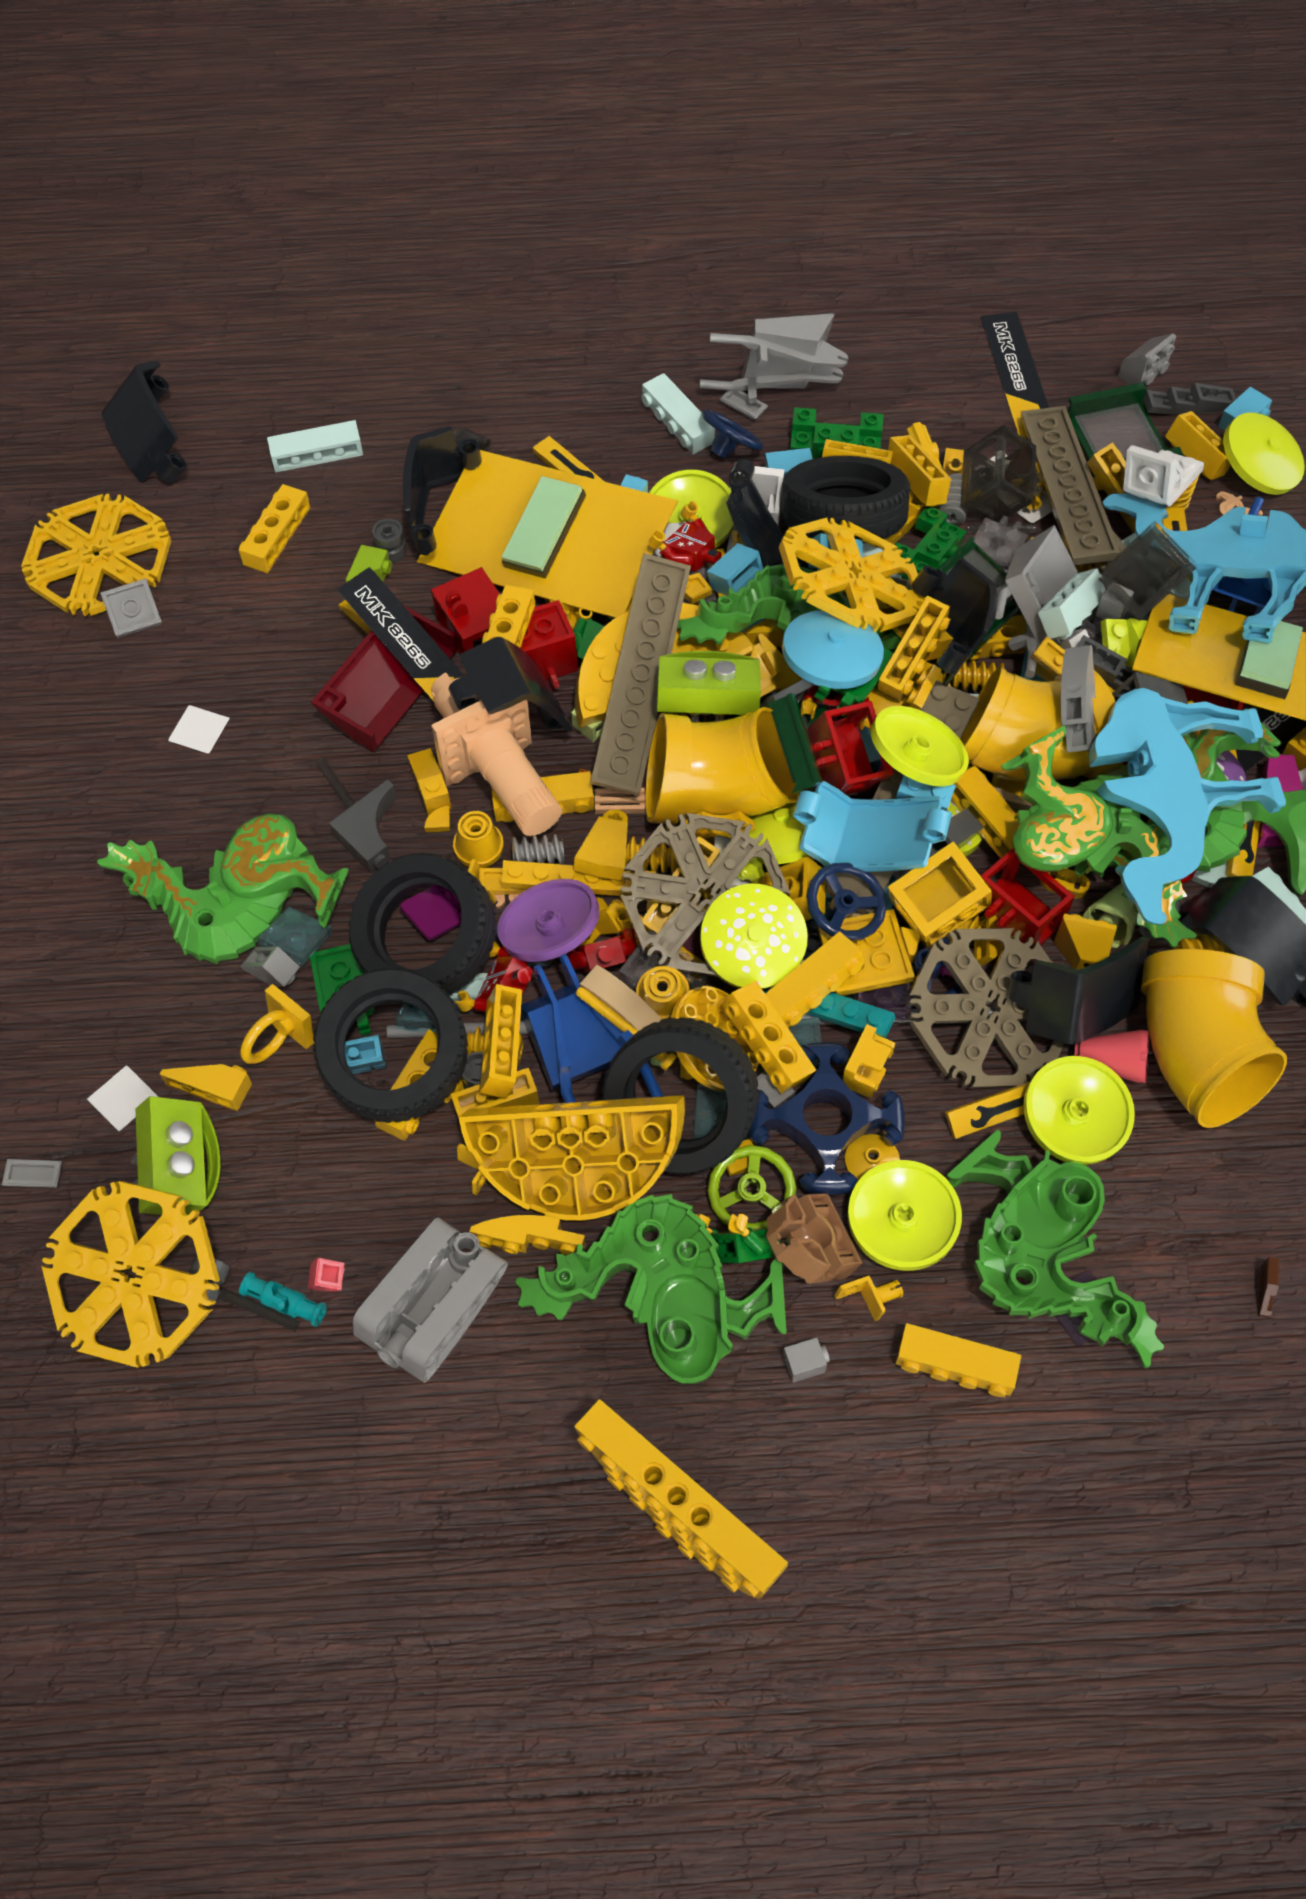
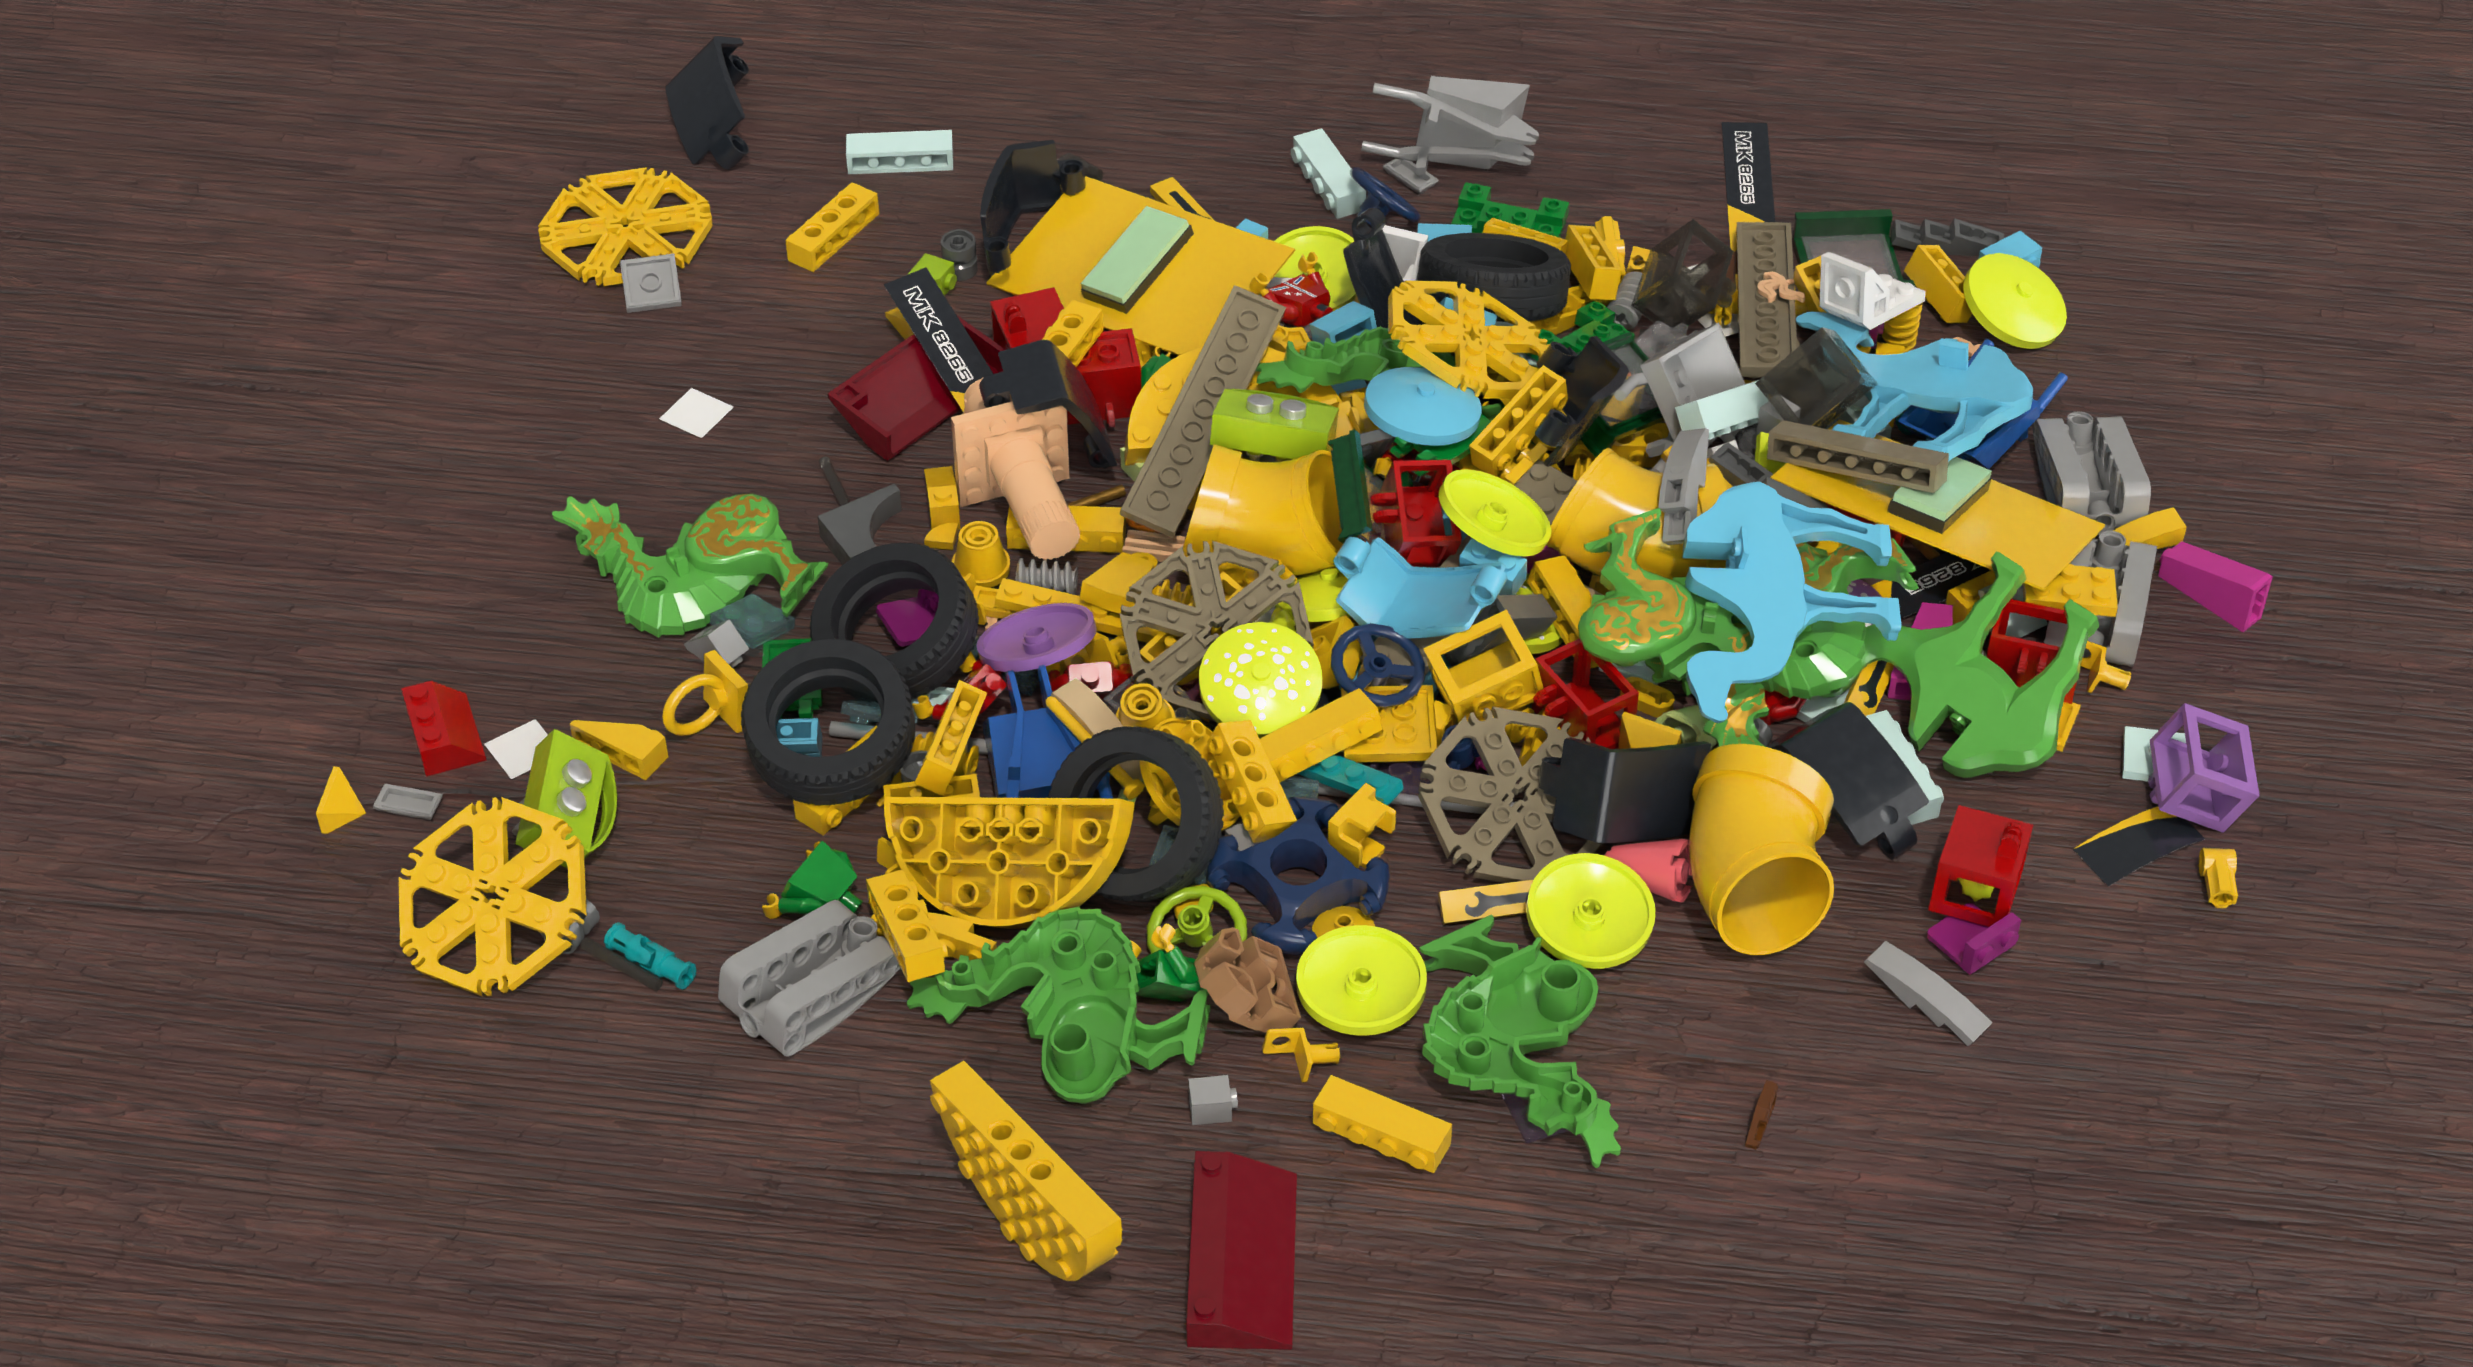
camera: 10 degrees right, 15 degrees down
(47, 1092) = (442, 727): none -> red slope
(326, 1275) = (702, 943): coral slope -> none
(416, 1200) = (820, 879): none -> green torso
(524, 1276) = (907, 925): none -> yellow brick
(560, 761) = (1101, 497): none -> pearl gold bar
(871, 1515) = (1241, 1254): none -> dark red slope
(1073, 467) = (1776, 281): none -> light nougat piece
(1148, 360) = (1906, 190): light grey slope -> none
(1201, 637) = (1858, 456): none -> dark tan brick

